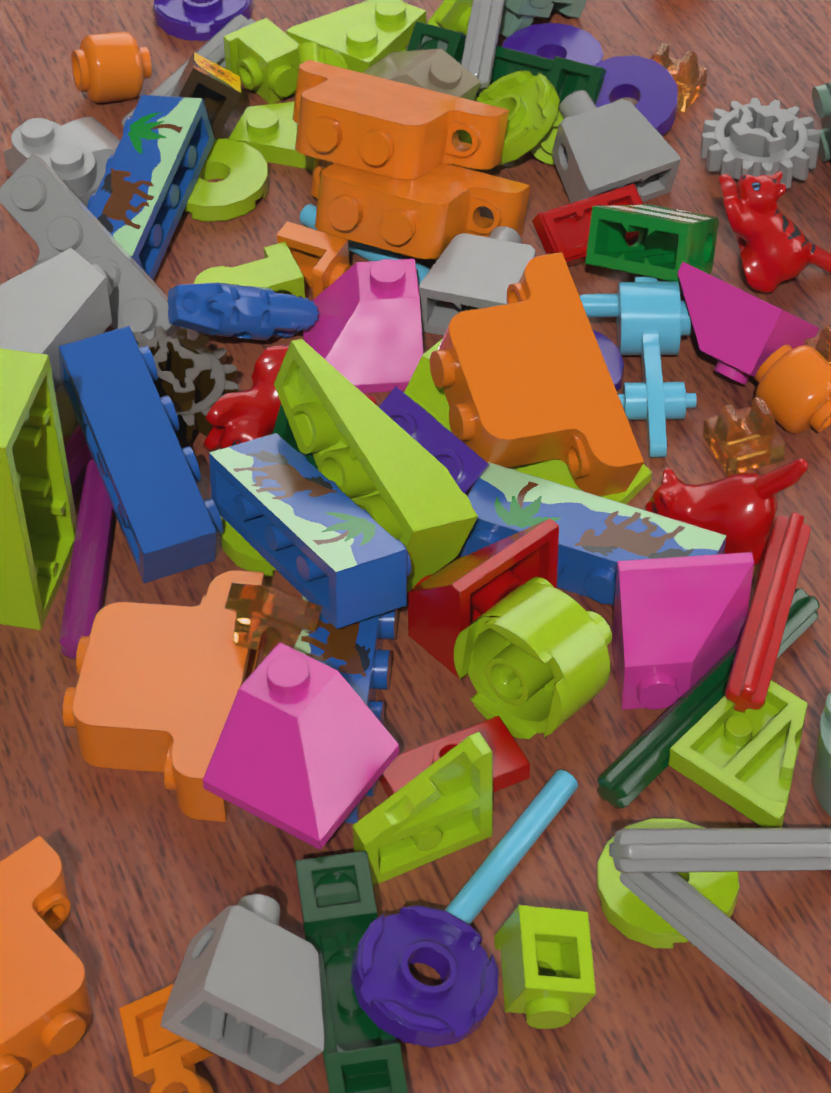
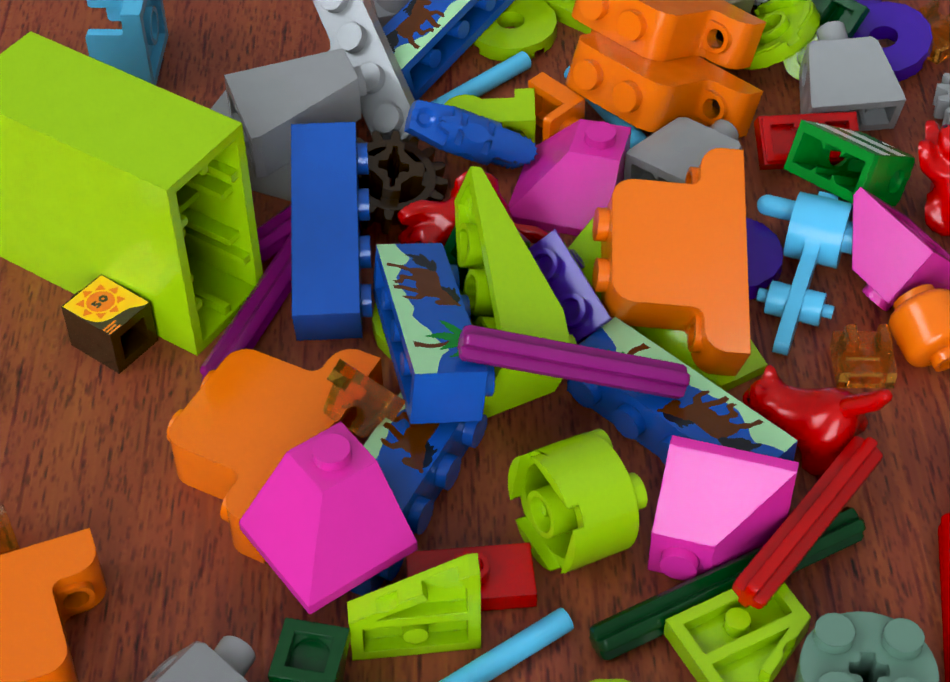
camera: 20 degrees right, 0 degrees up
(217, 246) = (491, 78): none -> medium azure bar
(471, 585) = (563, 414): red slope -> none
(478, 516) = (572, 362): none -> magenta axle

